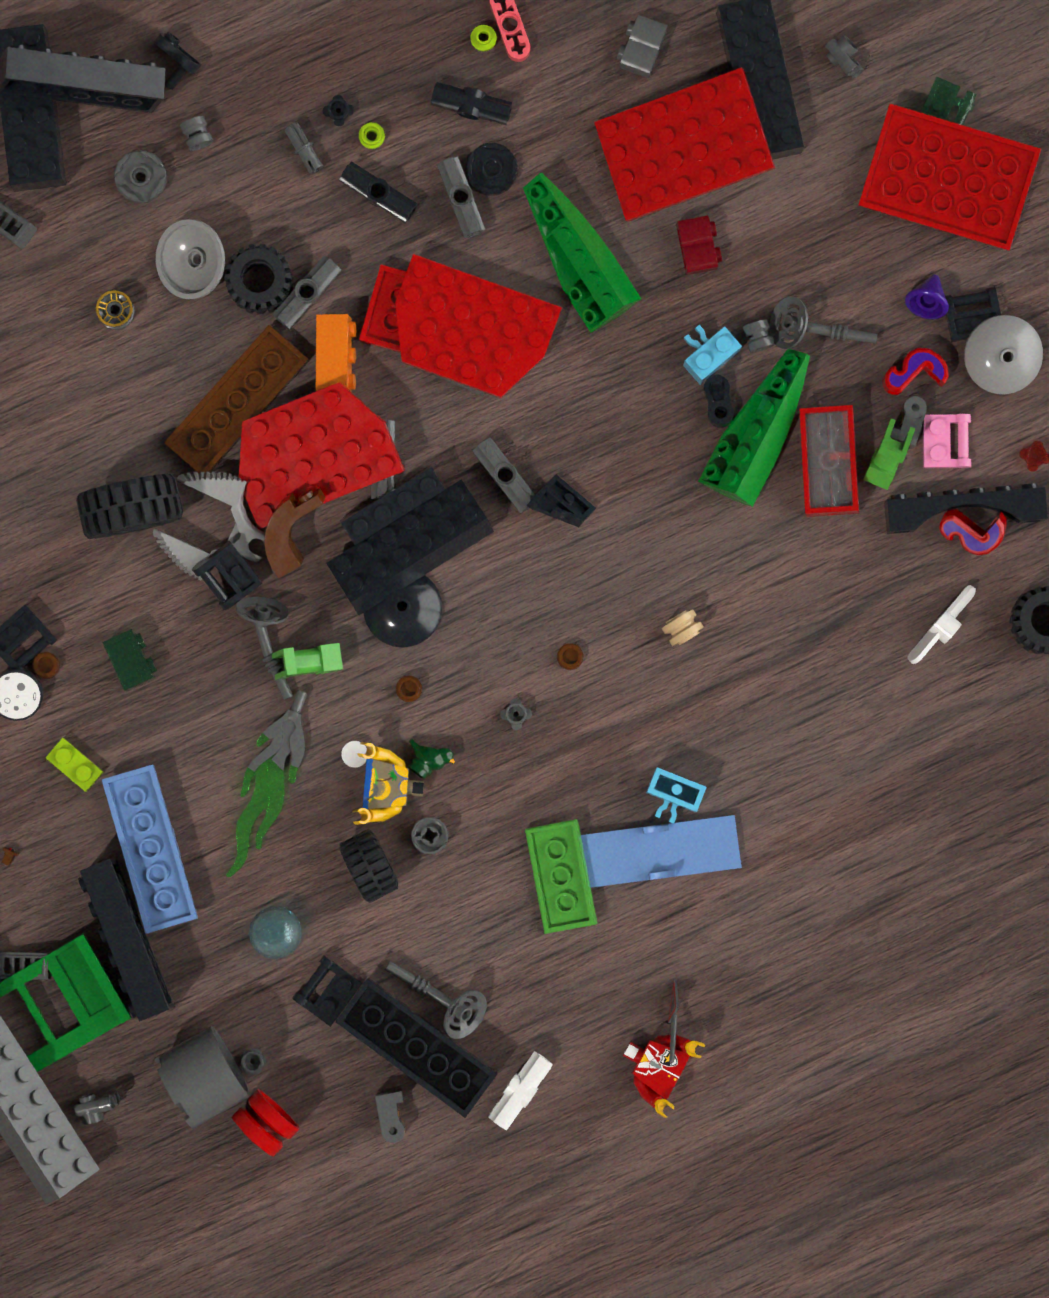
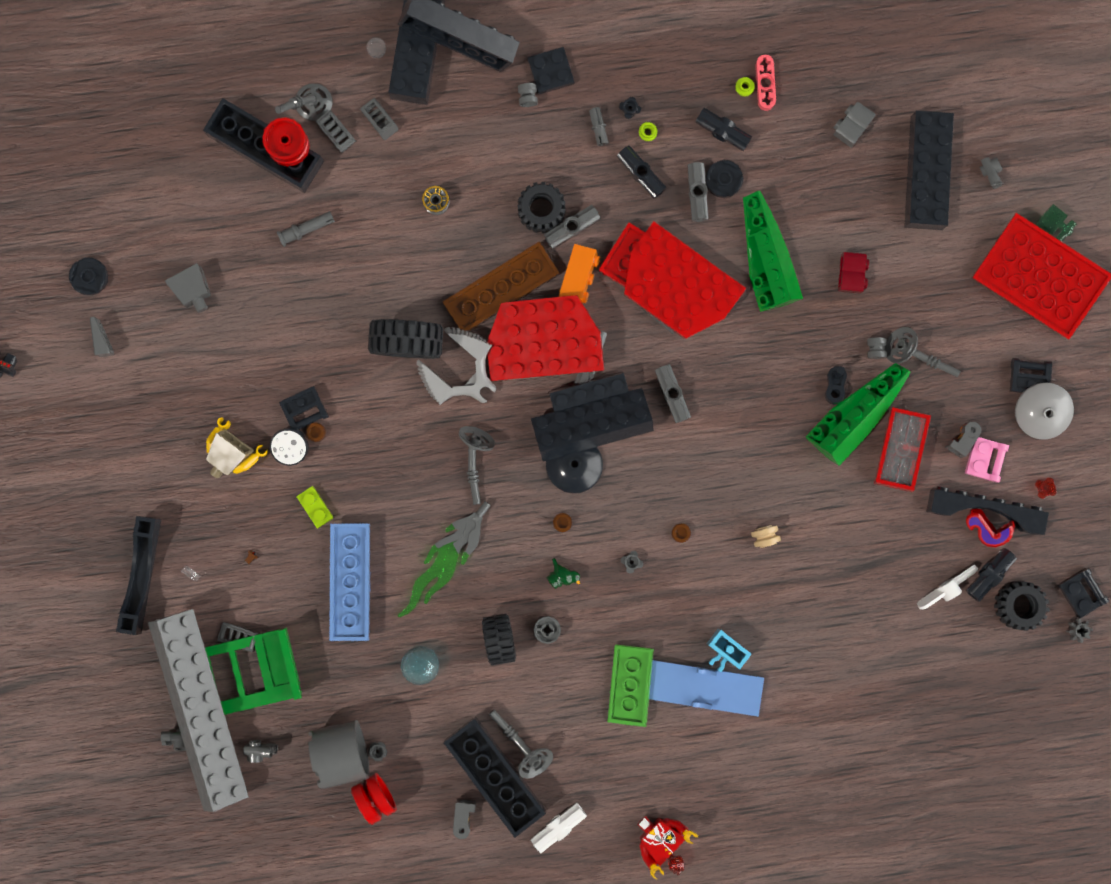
camera: 15 degrees right, 0 degrees up
(126, 939) = (315, 642): black brick -> none
(130, 660) = (375, 446): clear green brick -> none
(140, 163) = (478, 104): dark grey plate -> none
(179, 259) = (490, 178): light grey dish -> none
(186, 62) = (527, 29): black piece -> none
(218, 91) = (551, 70): none -> black plate
(233, 569) = (465, 404): black plate -> none
(279, 544) = (501, 398): reddish brown arch -> none
(309, 661) = (499, 483): bright green piece -> none
(335, 995) = (448, 722): black plate -> none
(350, 756) = (511, 557): white tile -> none
(385, 785) = (526, 585): torso -> none
(562, 502) = (706, 424): black wing -> none
(673, 1021) = (680, 806): dark grey piece -> none
(684, 145) = (864, 200): red plate -> none
(689, 1092) = (676, 864): none -> clear red plate
(711, 354) = (840, 351): medium azure brick -> none
(887, 457) = (942, 459): bright green piece -> none
(916, 360) = (978, 399): red animal -> none
(928, 299) = (1002, 357): dark purple hat -> none
(994, 591) = (991, 574): none -> black piece

